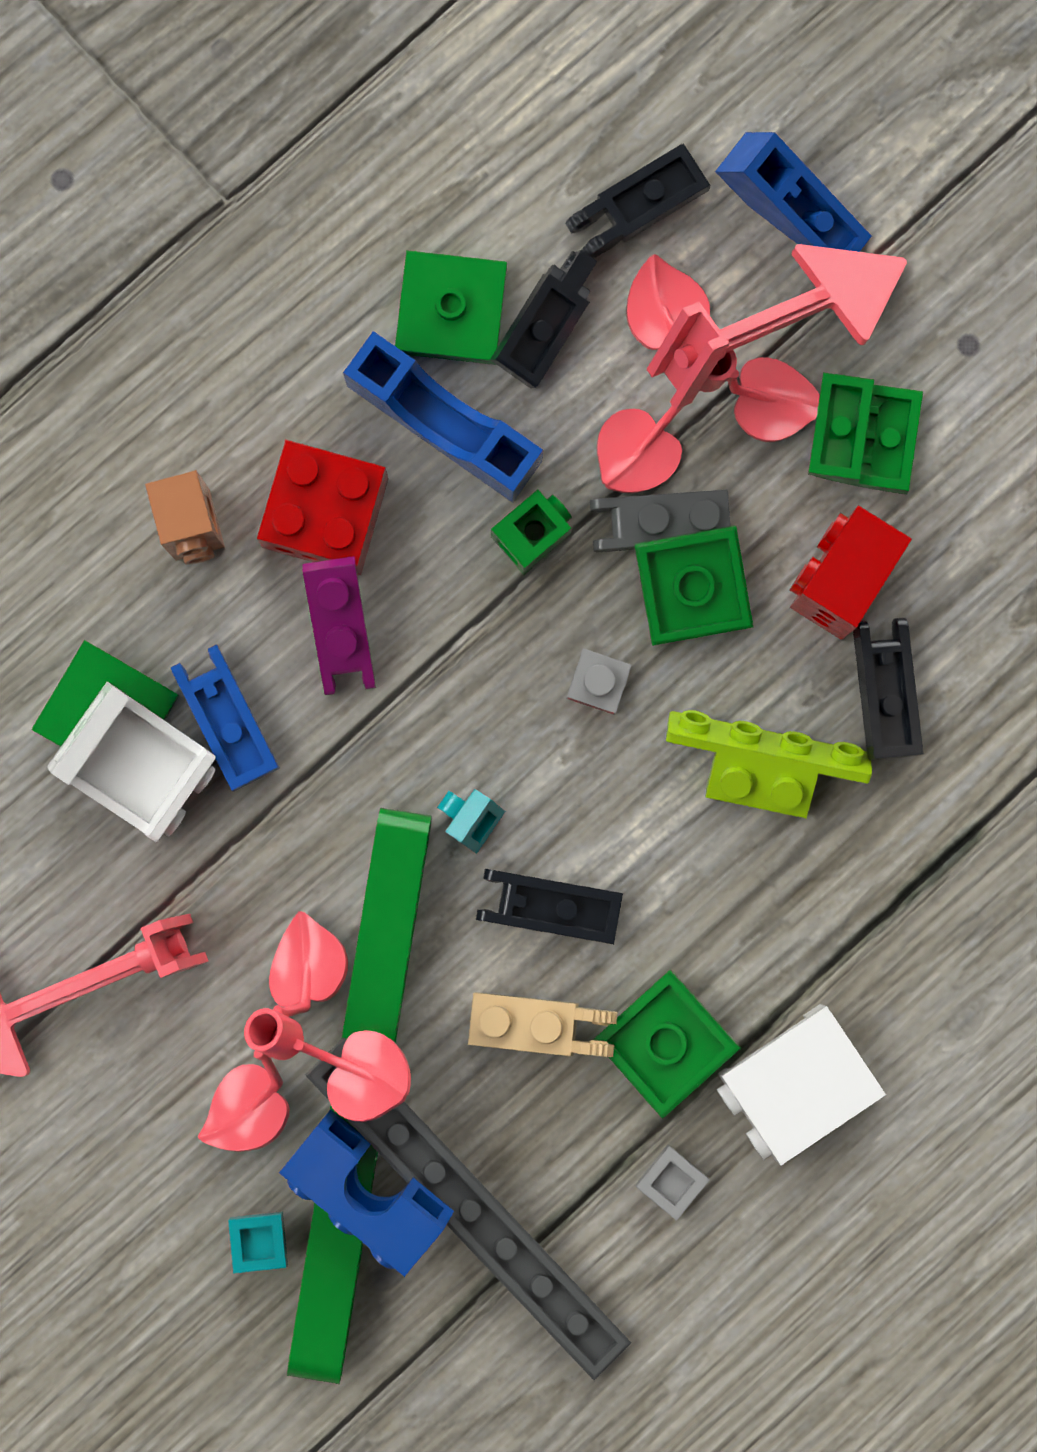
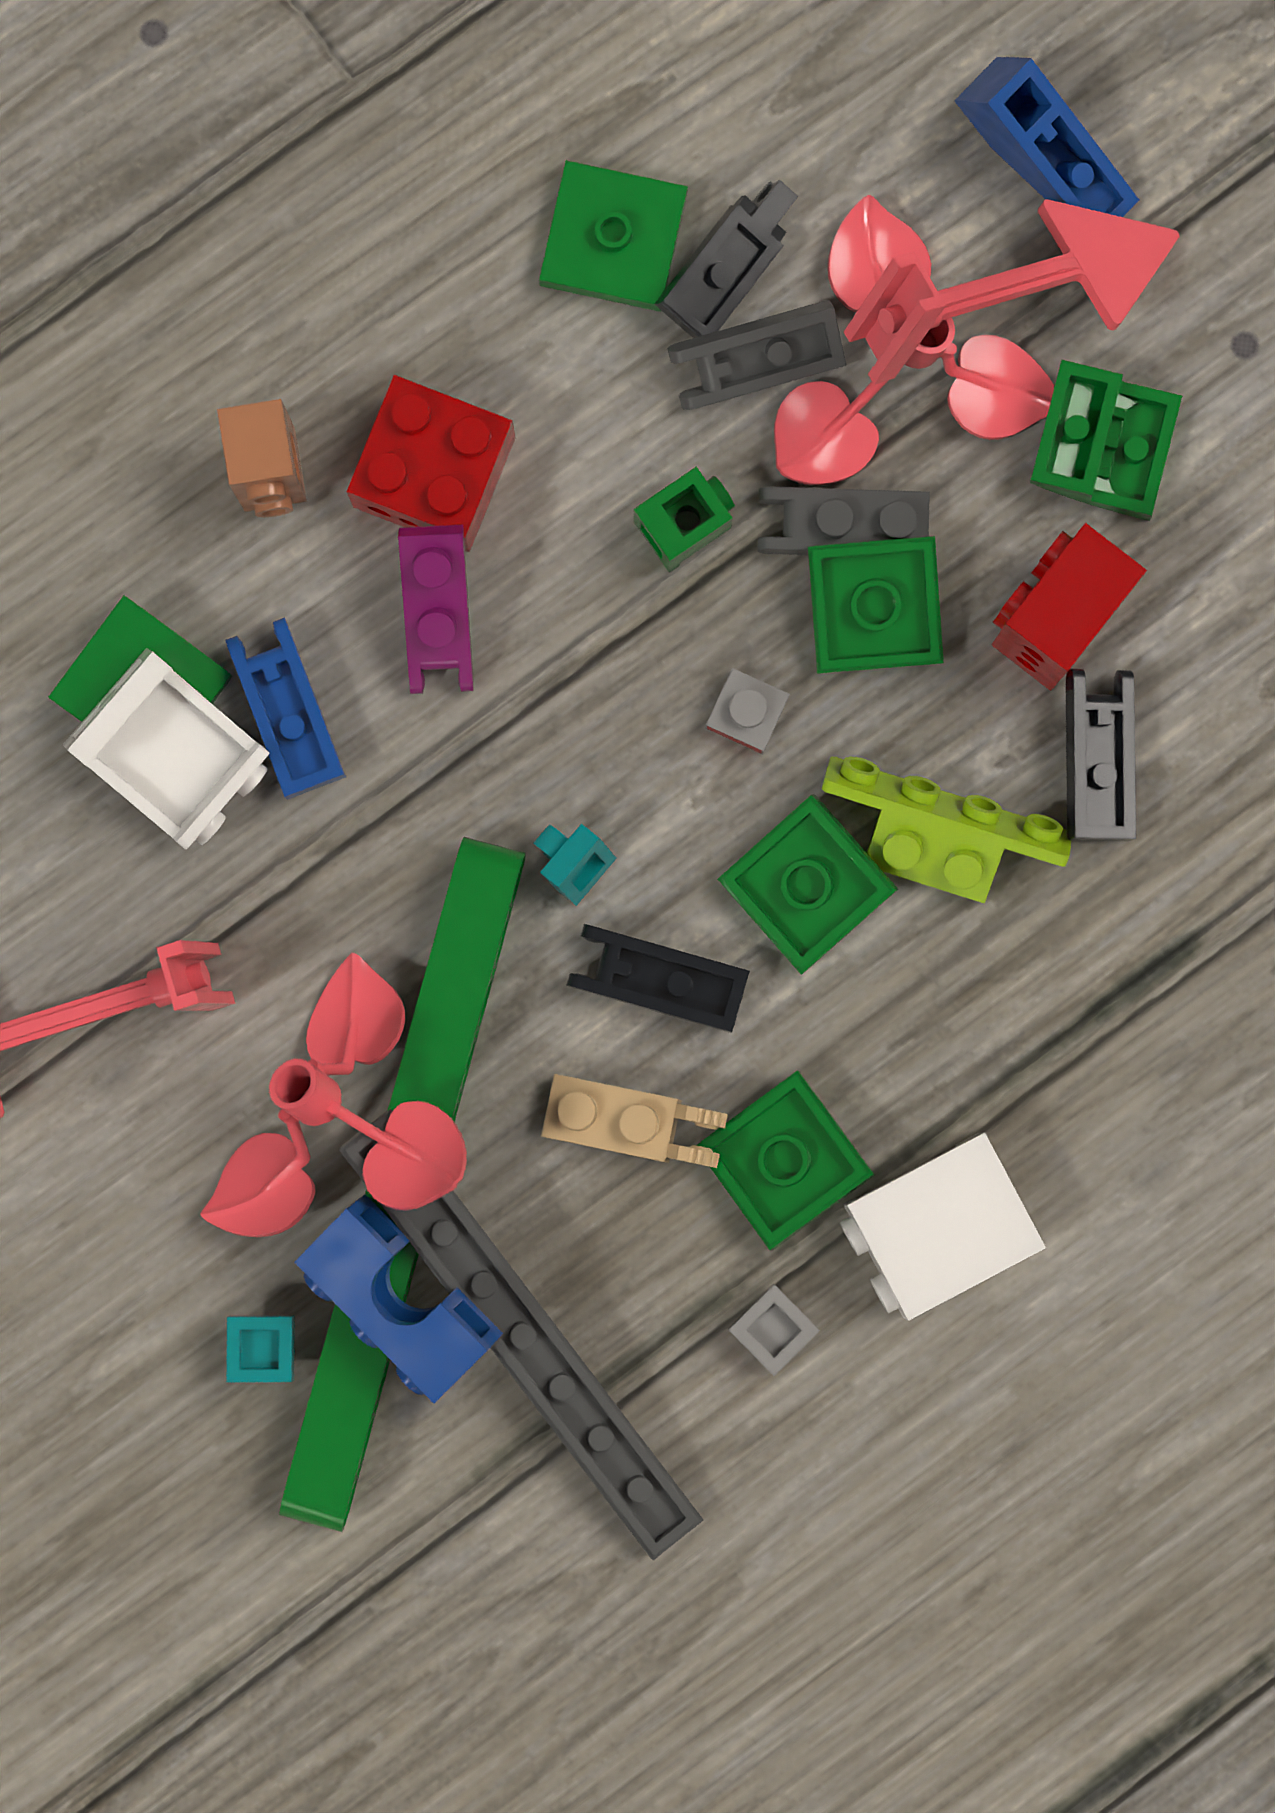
camera: 10 degrees right, 0 degrees up
(424, 407) = (560, 347): blue arch -> none
(581, 391) = (761, 354): none -> dark grey hinge
(642, 199) = (861, 127): black hinge -> none
(662, 817) = (807, 884): none -> green plate

